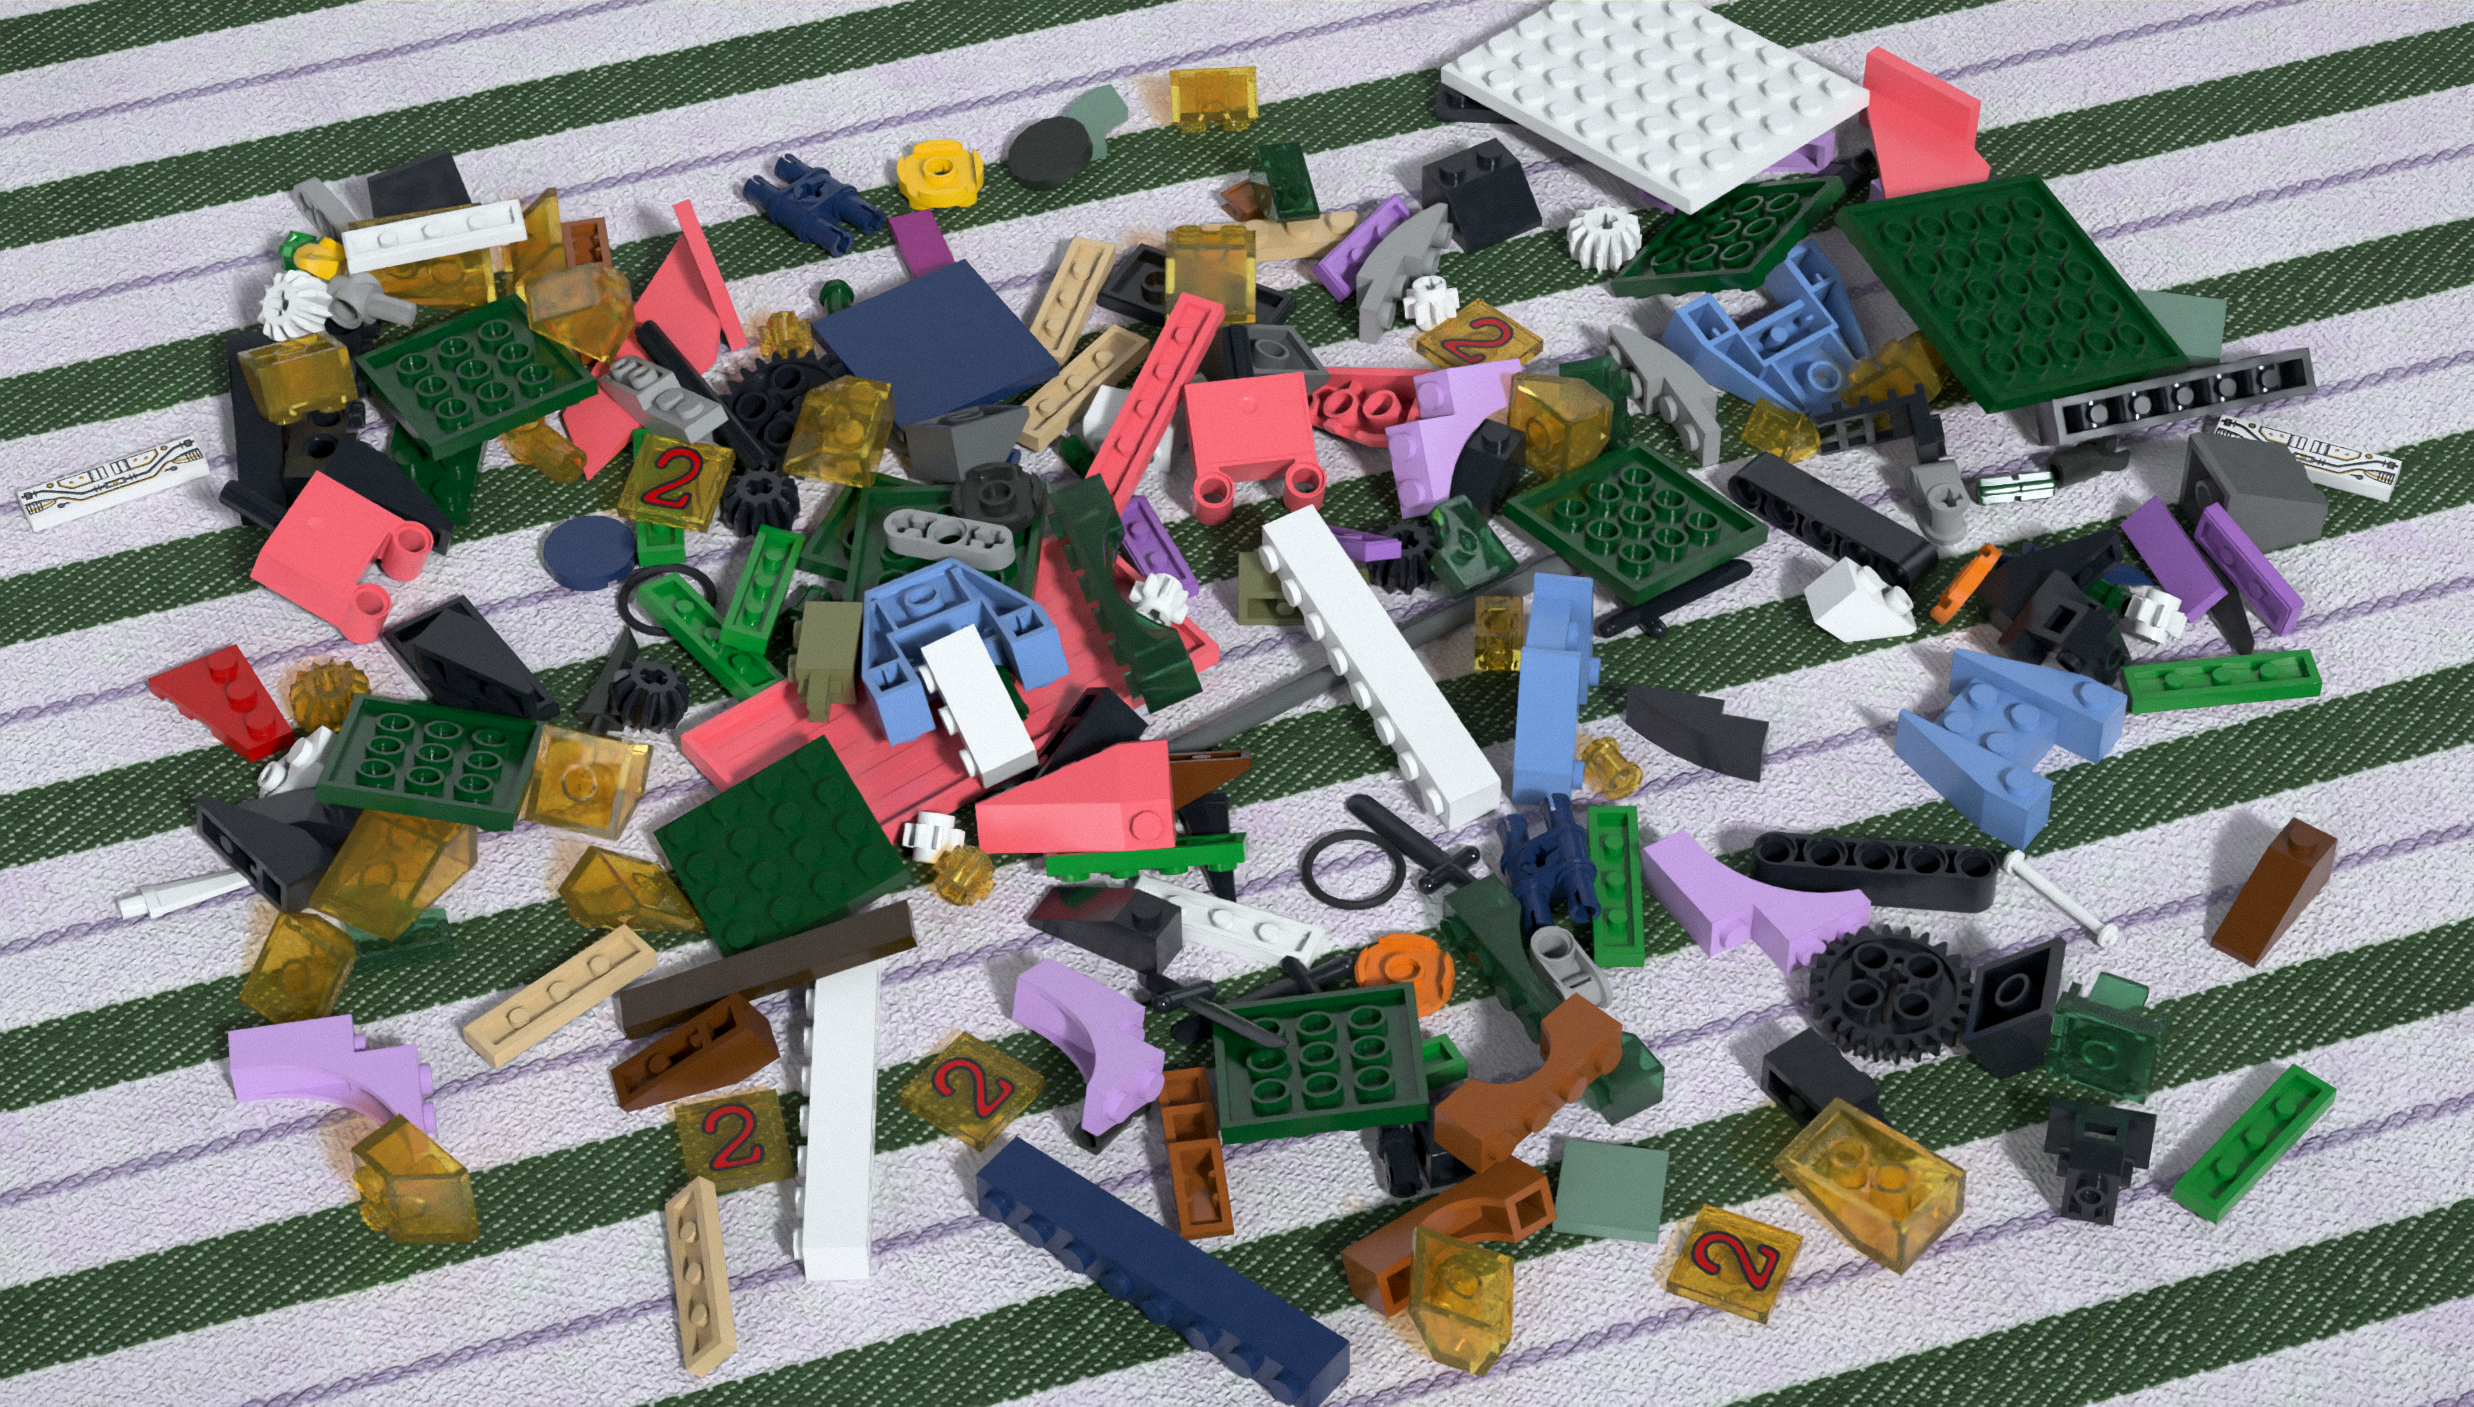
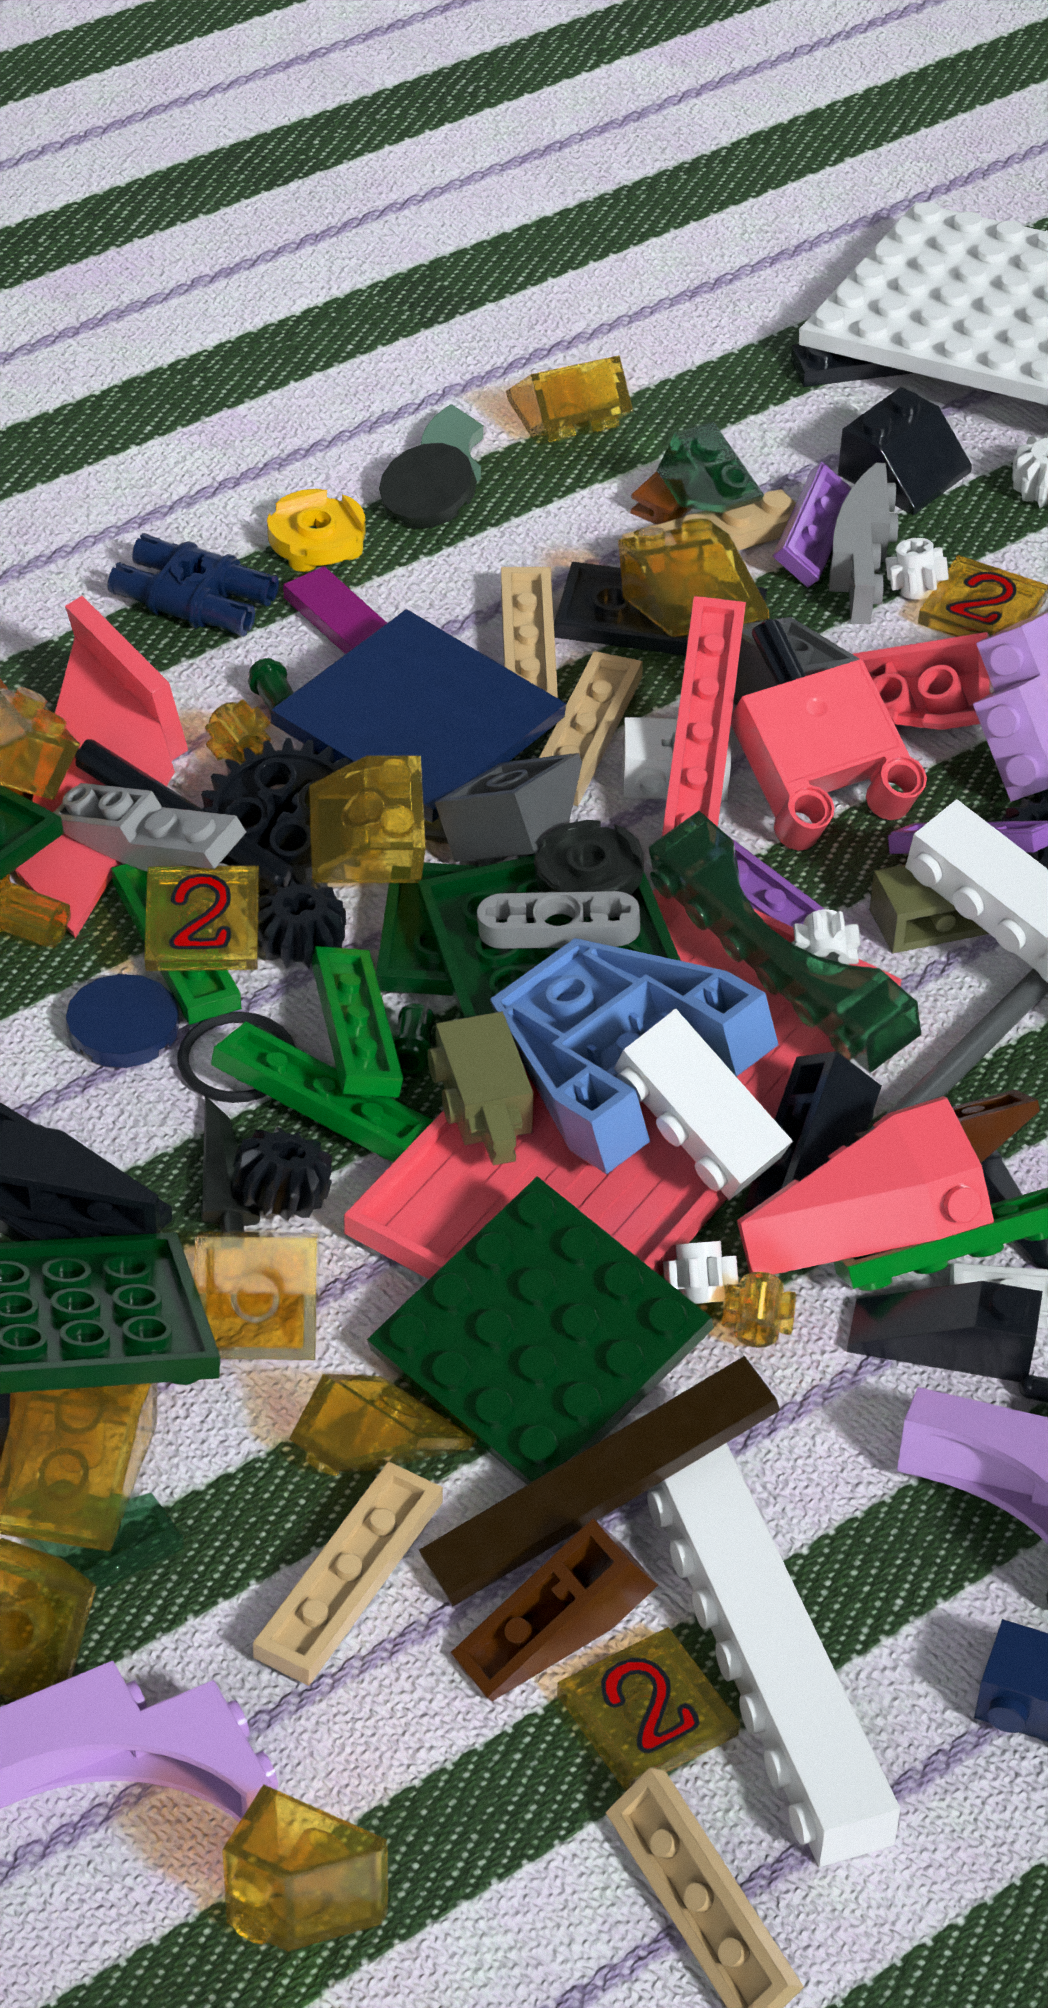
camera: 20 degrees left, 0 degrees up
(972, 1091) = (896, 1572): clear yellow tile -> none
(1076, 454) = (629, 805): dark green piece -> none

